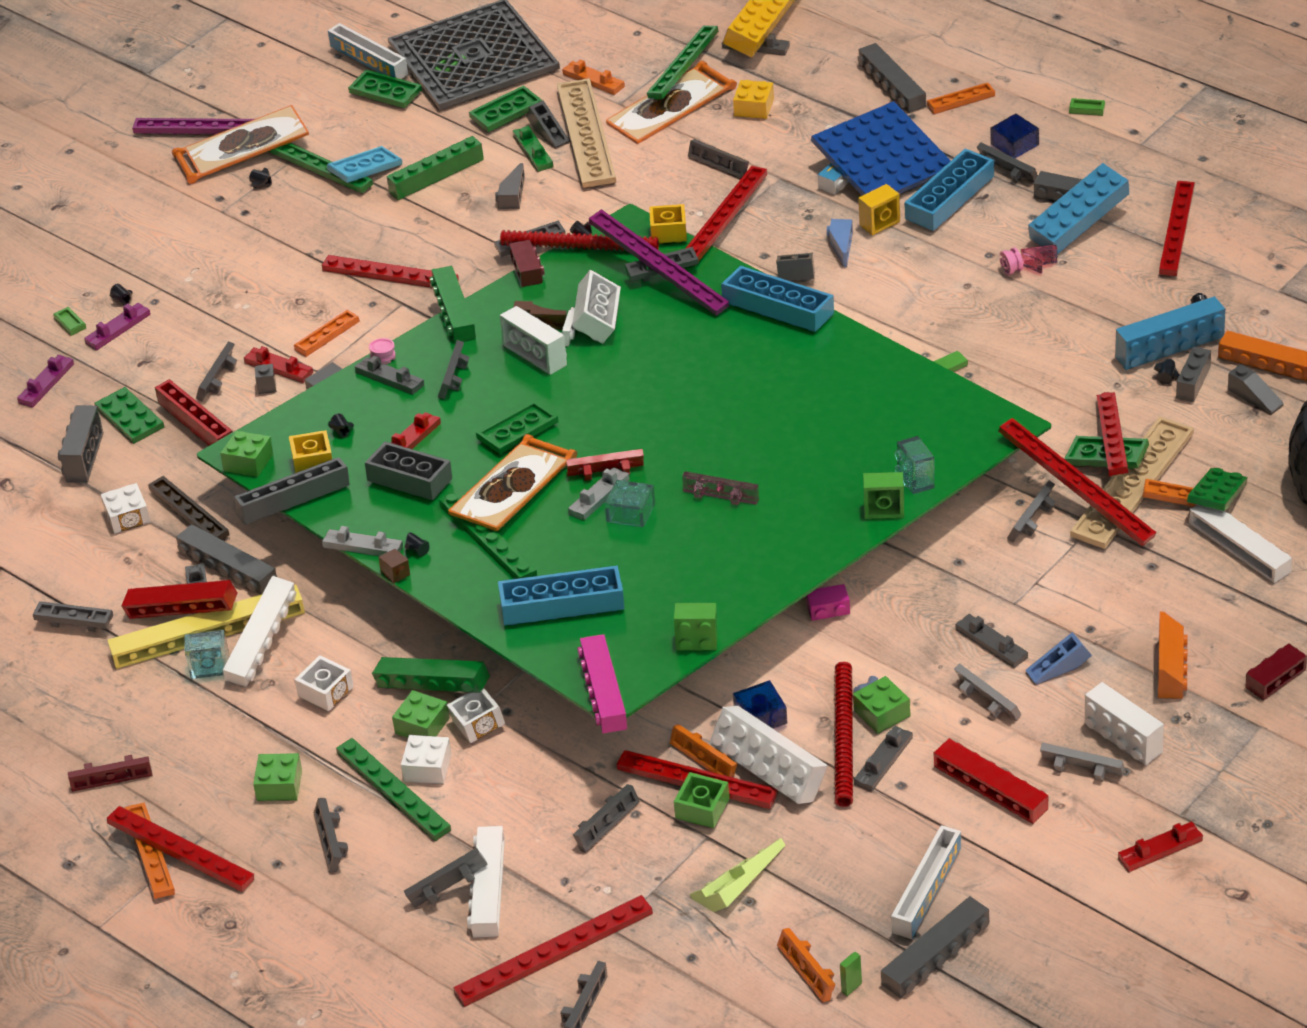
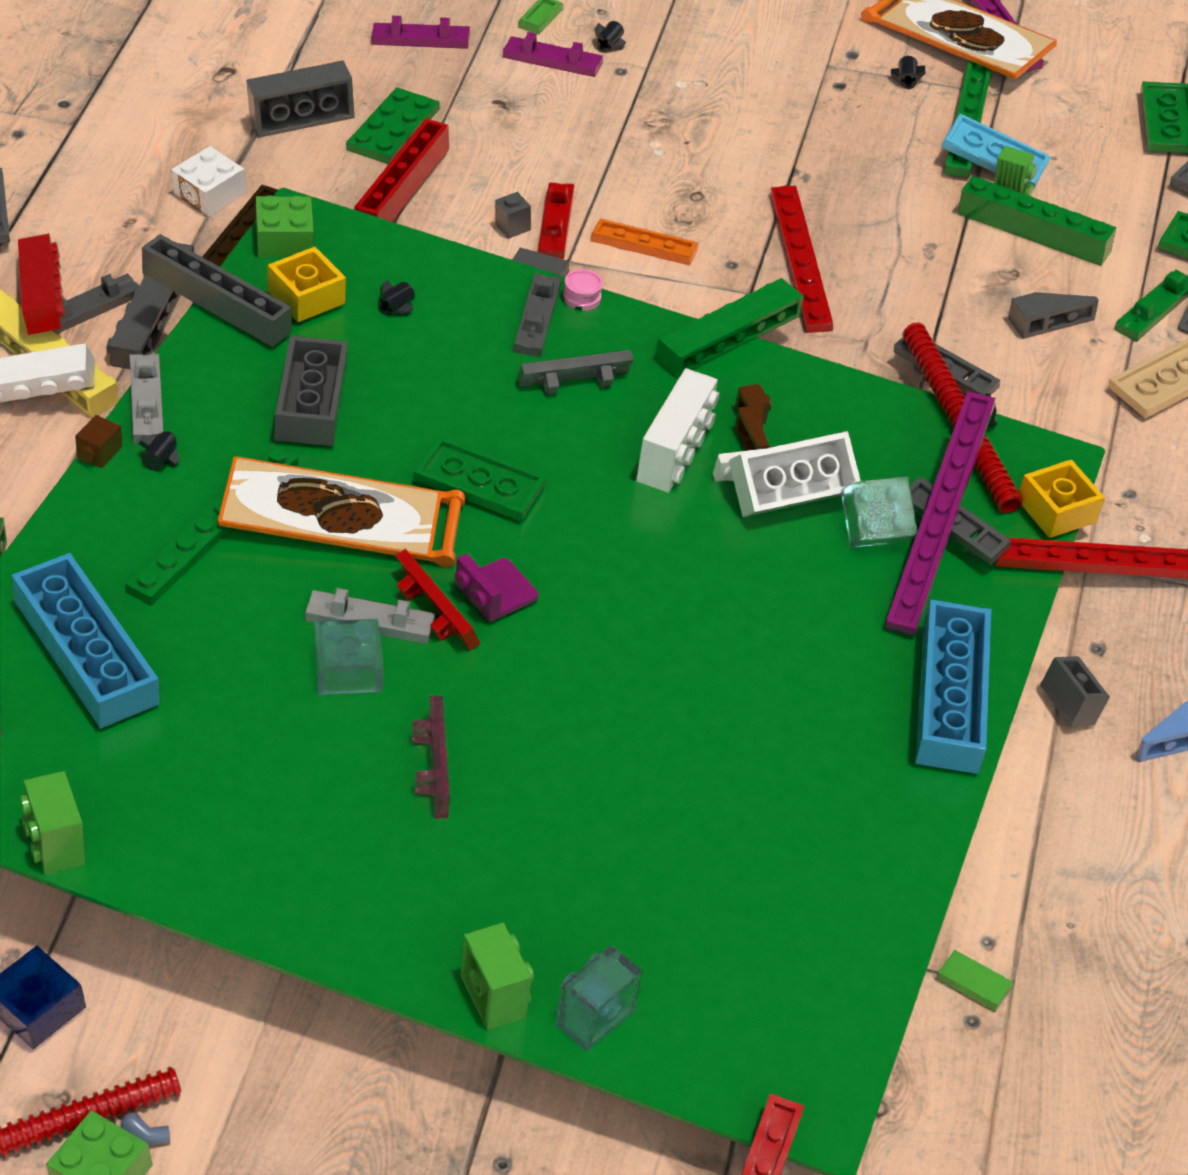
camera: 60 degrees right, 5 degrees up
(210, 381) = (505, 166): dark grey hinge -> none
(395, 157) = (1015, 170): none -> bright green brick
(417, 431) = (408, 376): red hinge -> none
(526, 263) = (871, 374): dark red brick -> none
(607, 441) = (494, 587): none -> magenta bracket
(642, 286) = (879, 511): none -> clear light blue brick
(828, 602) = (320, 1012): dark pink brick -> none

